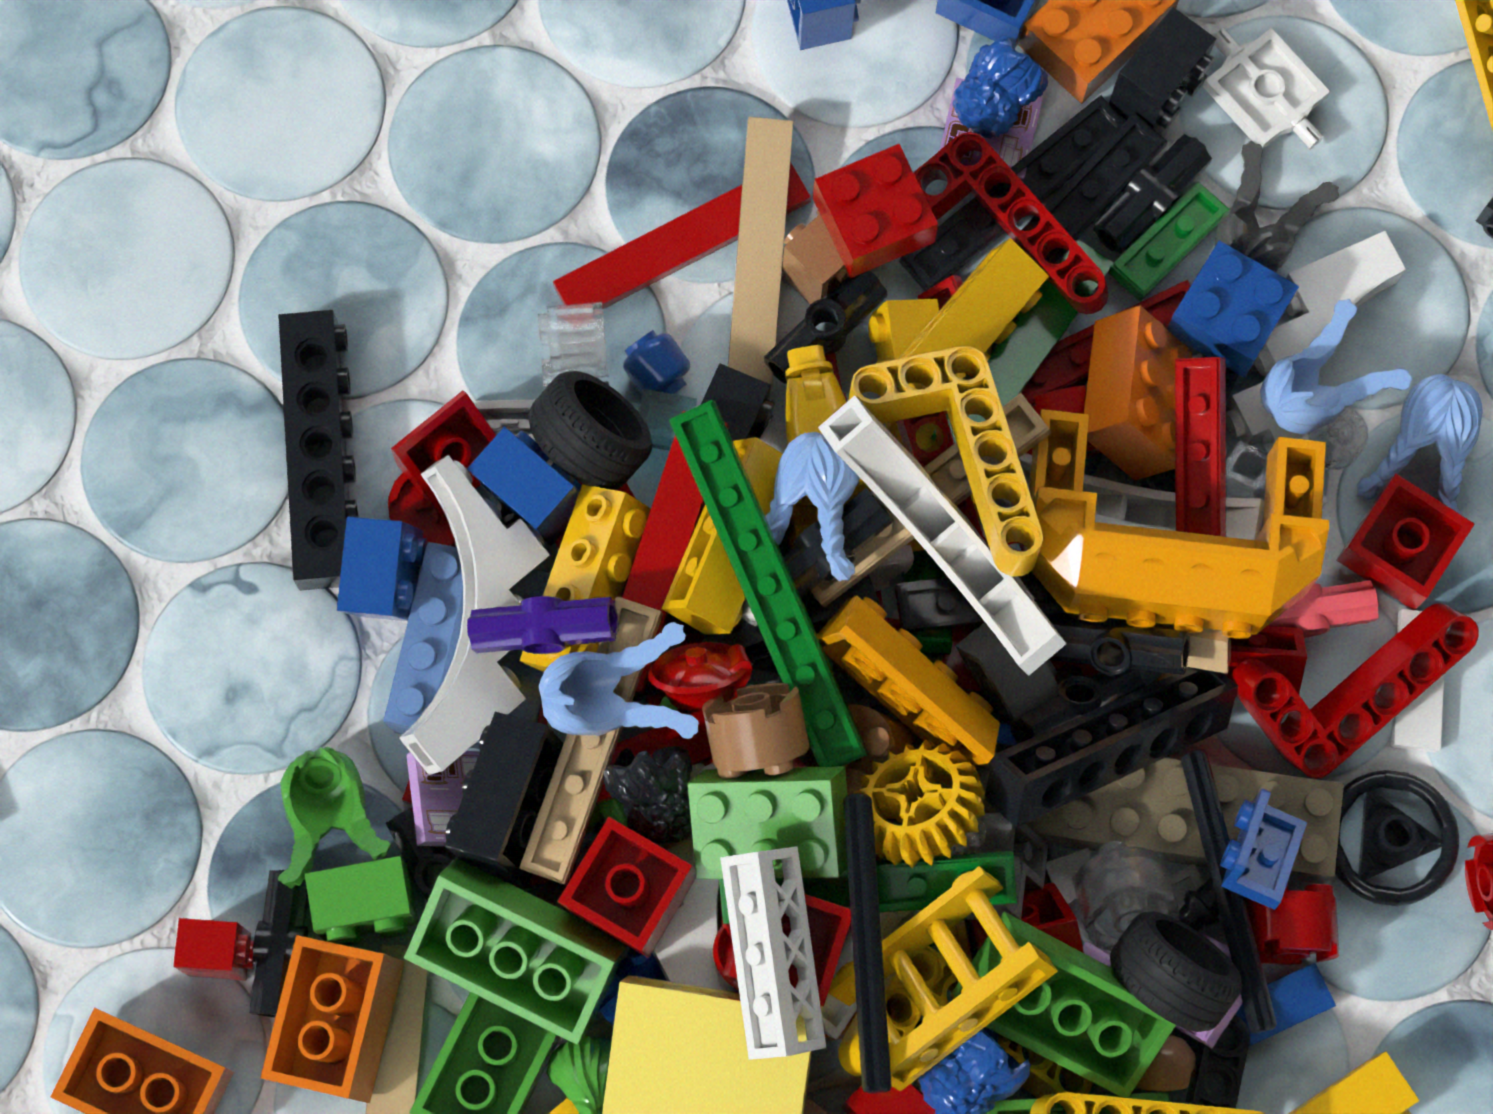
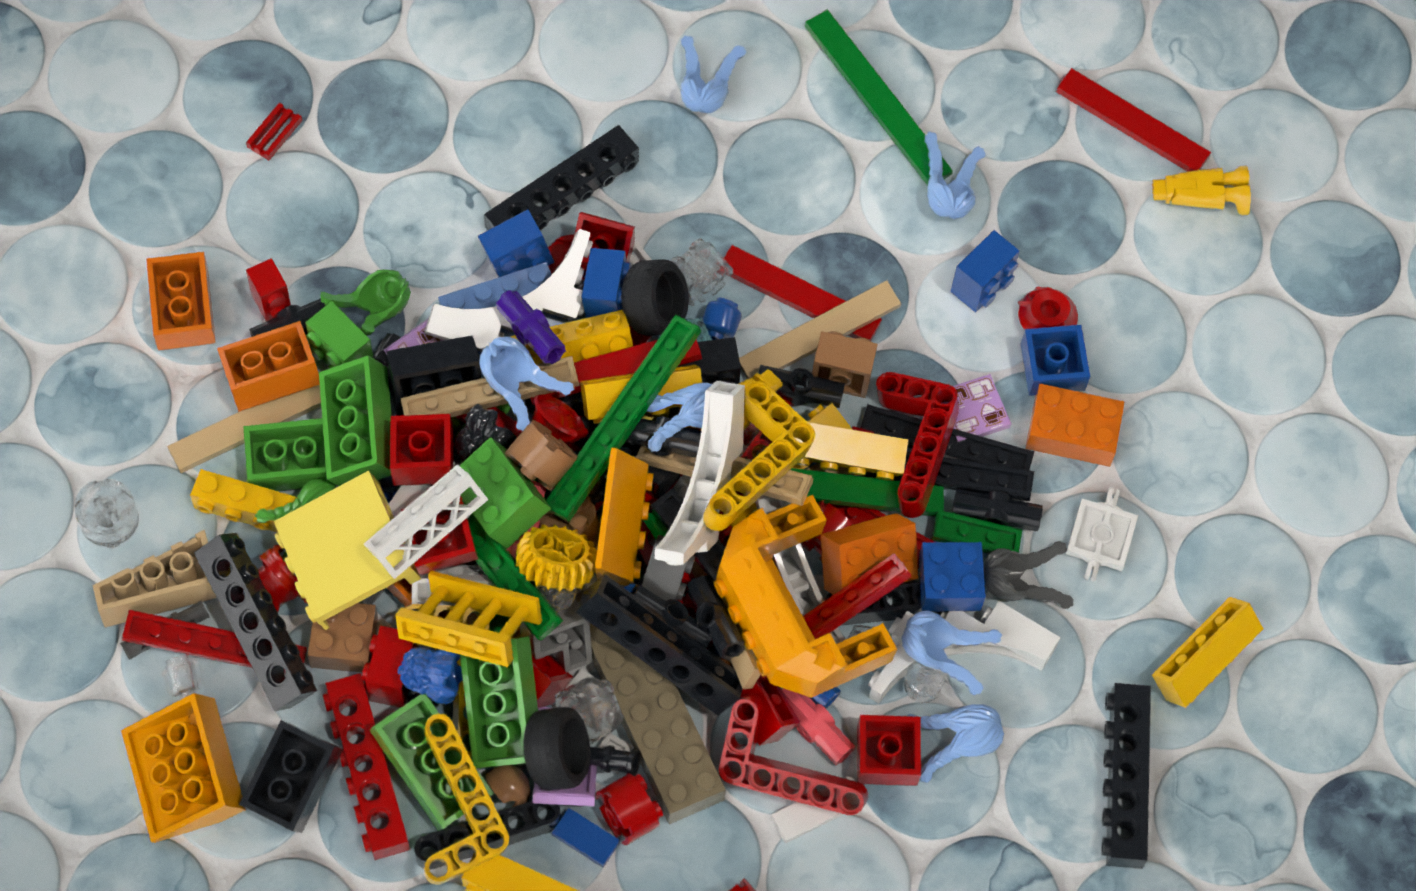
camera: 55 degrees right, 10 degrees down
(308, 164) = (706, 96): none -> light blue hair
(867, 944) = (461, 566): black axle -> none
(875, 210) = (868, 358): red brick -> none
(998, 88) = (991, 391): blue hair -> none
(1164, 71) = (1065, 470): black brick -> none
(1230, 904) = (621, 757): black axle -> none
(1263, 853) = (653, 756): blue bracket -> none
(1395, 838) = (718, 844): black piece -> none

